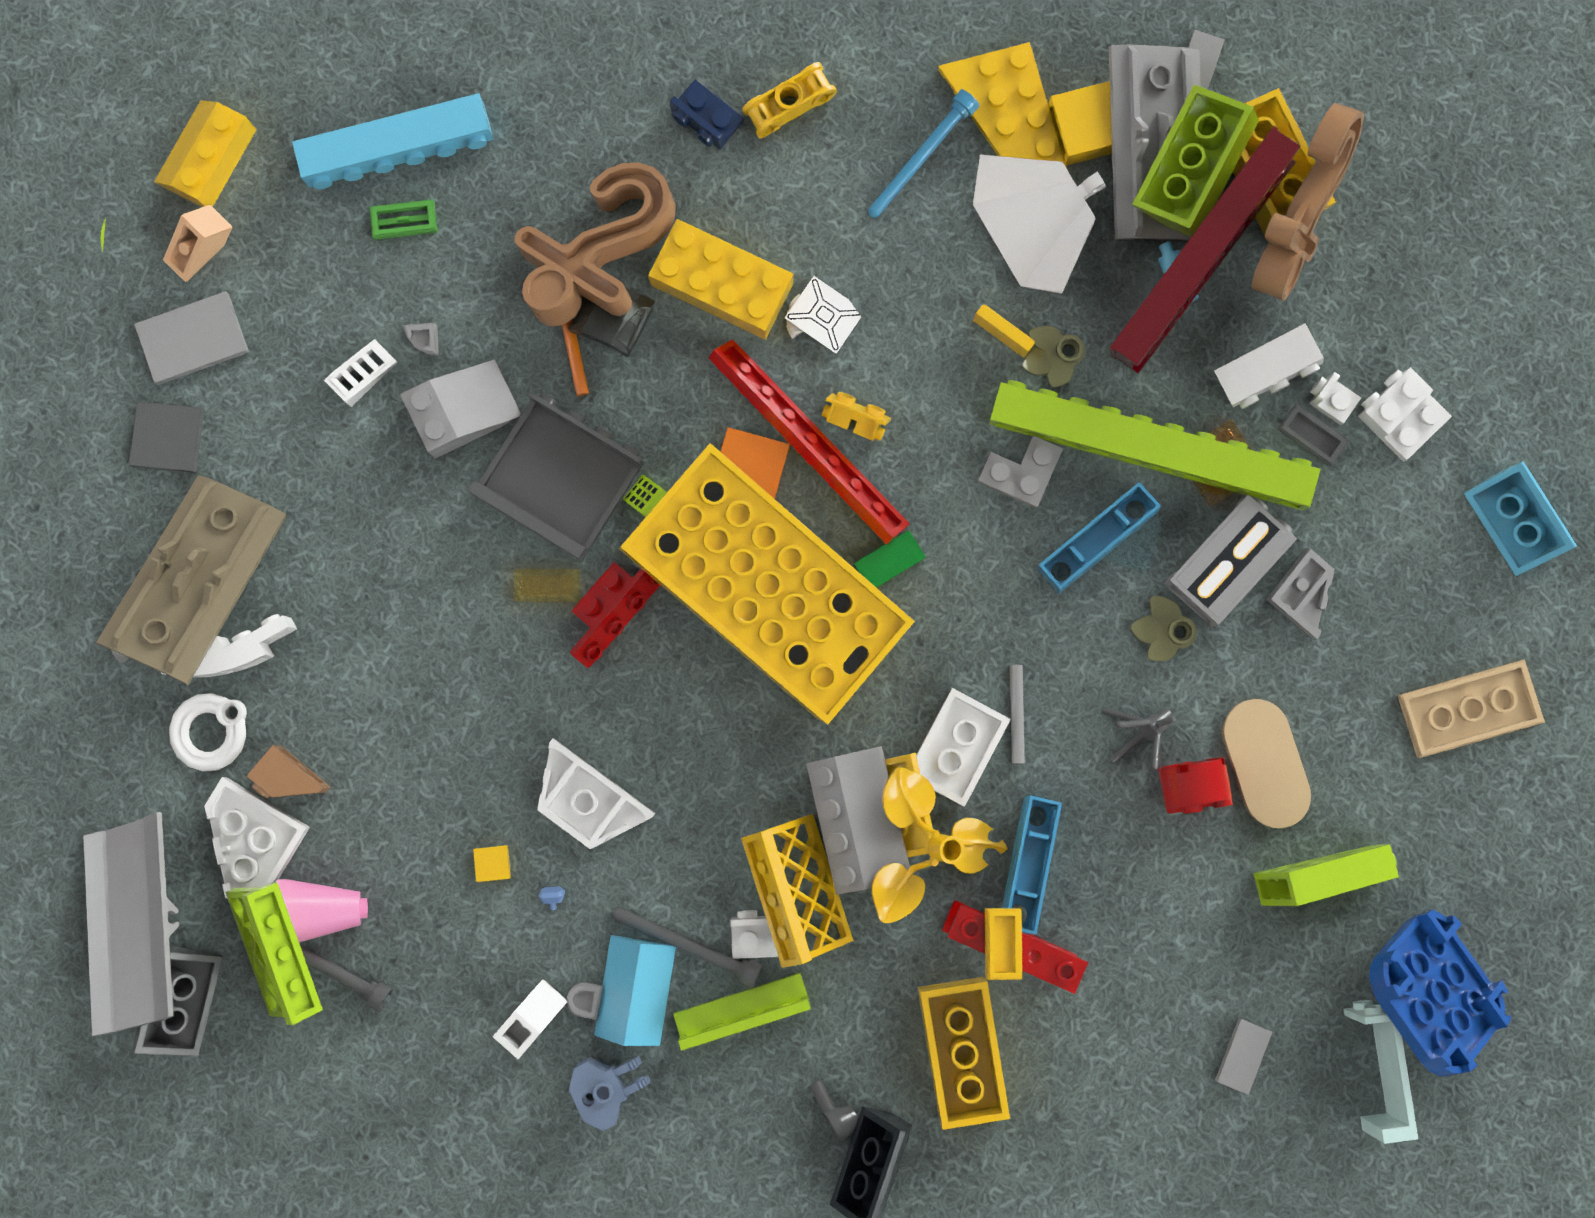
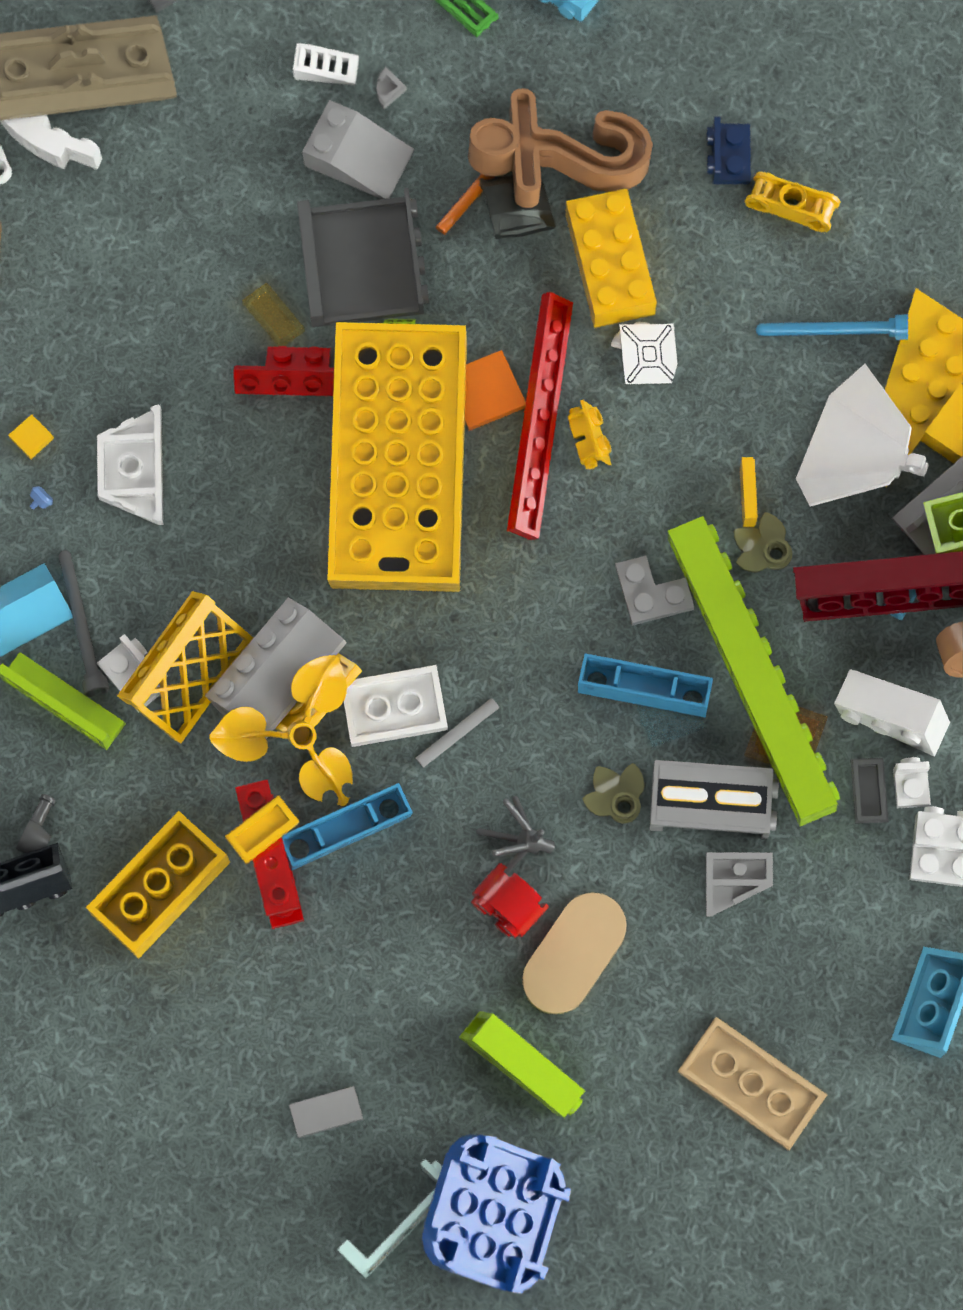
camera: 55 degrees right, 10 degrees down
(890, 559) = (498, 546): green tile -> none

